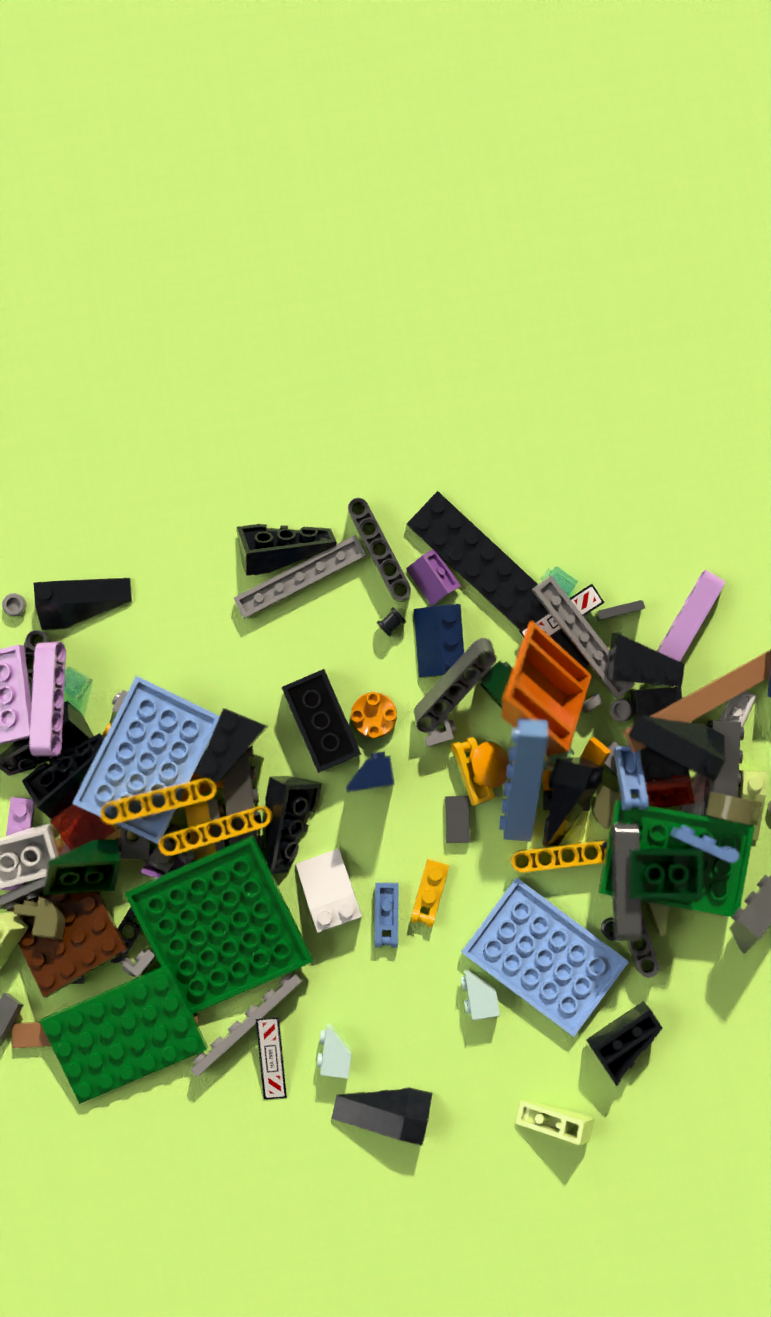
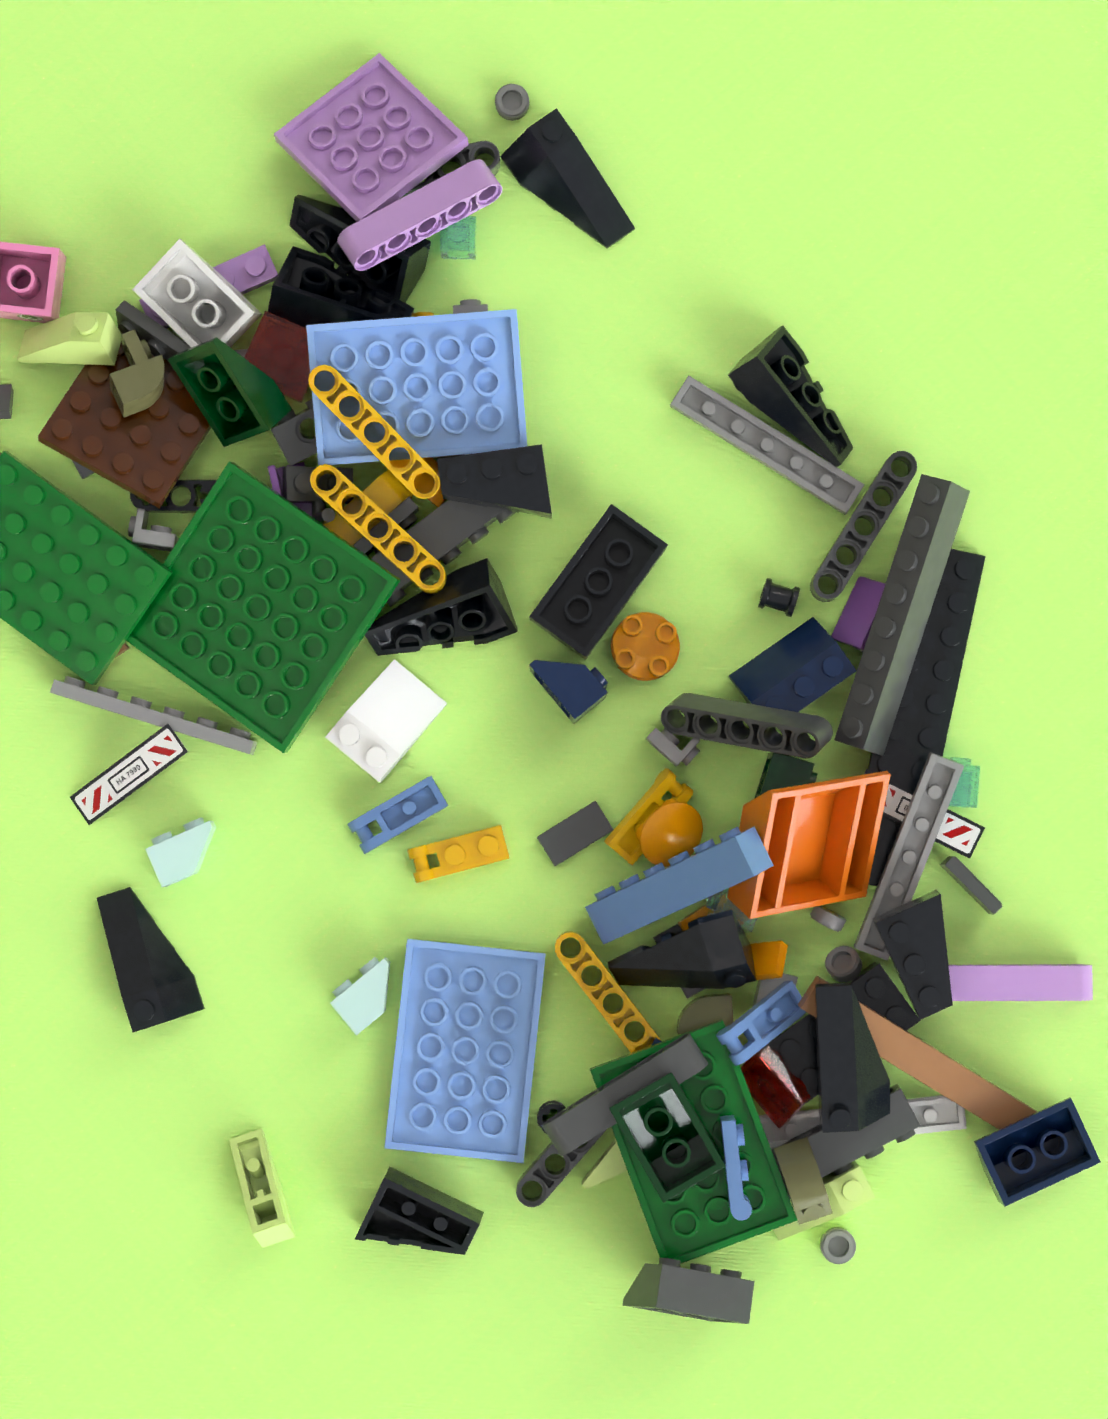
camera: 55 degrees right, 0 degrees up
(443, 558) = (902, 614): none -> dark grey brick

